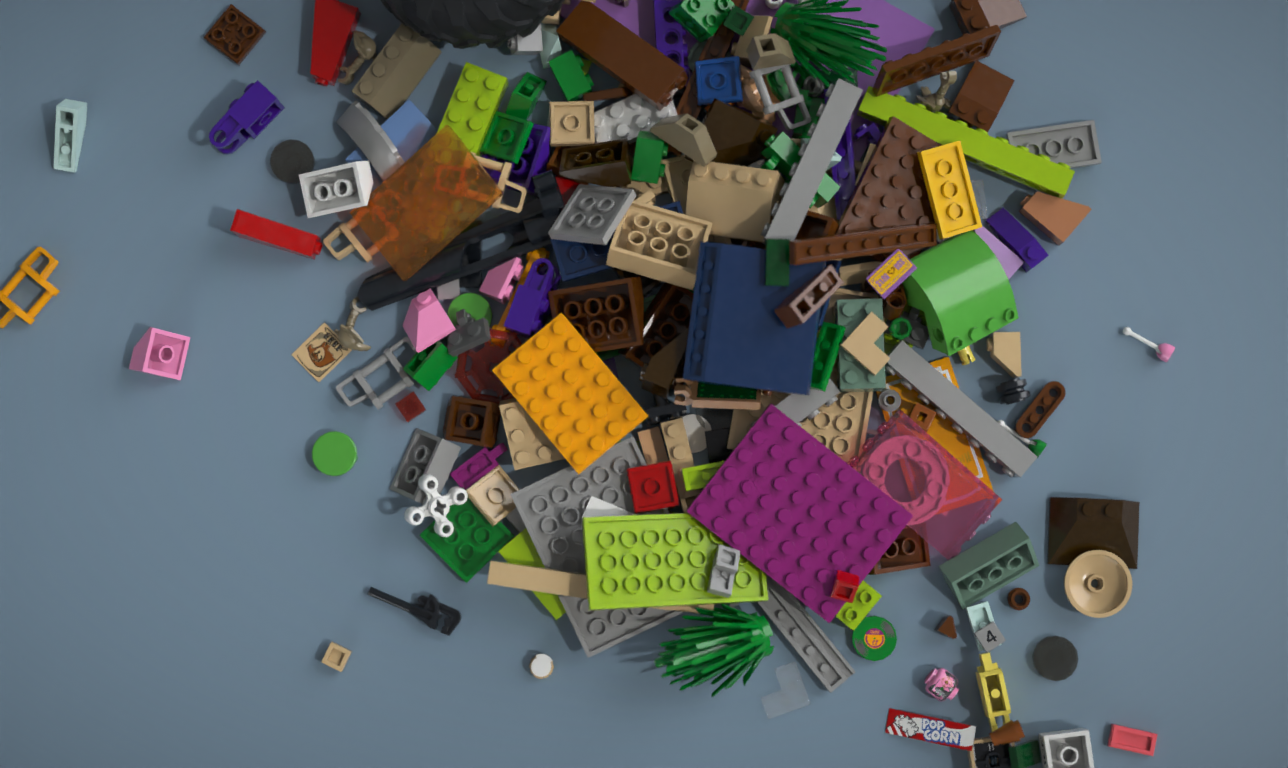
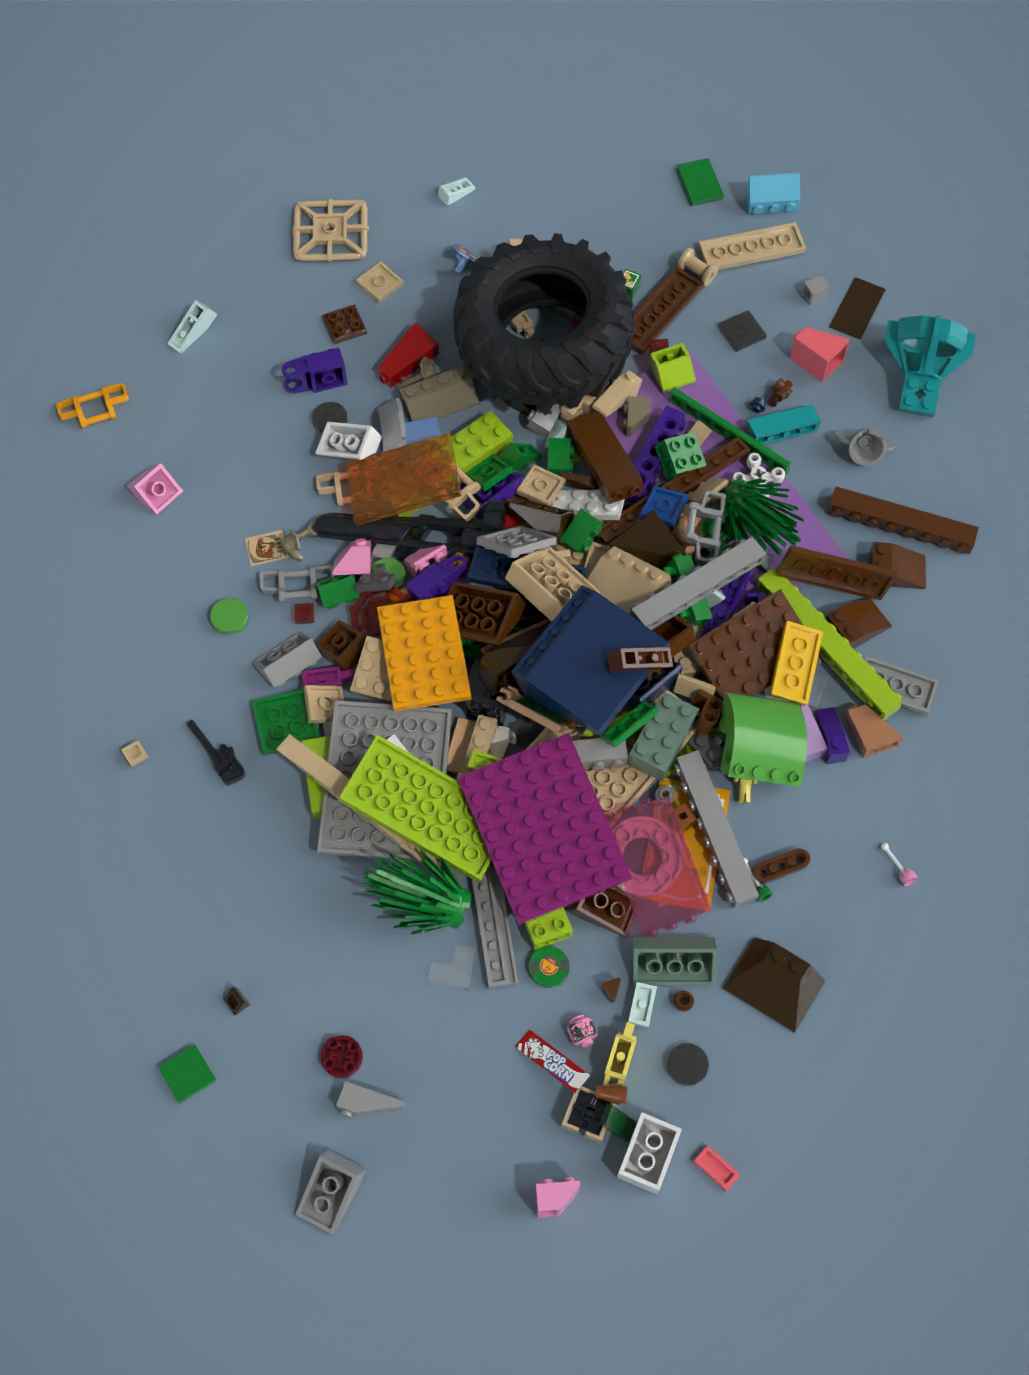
camera: 30 degrees right, 20 degrees down
(276, 235) = (285, 452): red slope -> none
(429, 503) = (284, 682): white gear -> none
(541, 666) = (279, 844): white piece -> none
(652, 487) = (444, 751): red tile -> none
(686, 136) = (617, 524): dark tan slope -> none
(723, 571) = (458, 835): light grey slope -> none
(738, 20) = (702, 472): dark green brick -> none
(769, 51) = (711, 494): dark tan slope -> none
(777, 262) = (630, 625): dark green tile -> none
(845, 586) = (546, 899): red slope -> none
(862, 243) = (705, 653): reddish brown tile -> none
(862, 347) = (665, 727): tan tile -> none
(891, 273) = (715, 692): slope -> none
(900, 328) = (702, 741): green tile -> none
(936, 101) = (822, 604): dark tan piece -> none
(989, 636) = (642, 1013): light grey tile -> none
(1006, 351) = (777, 808): tan slope -> none
(1012, 391) = (766, 839): black wheel -> none
(1113, 583) = (758, 1007): tan dish -> none

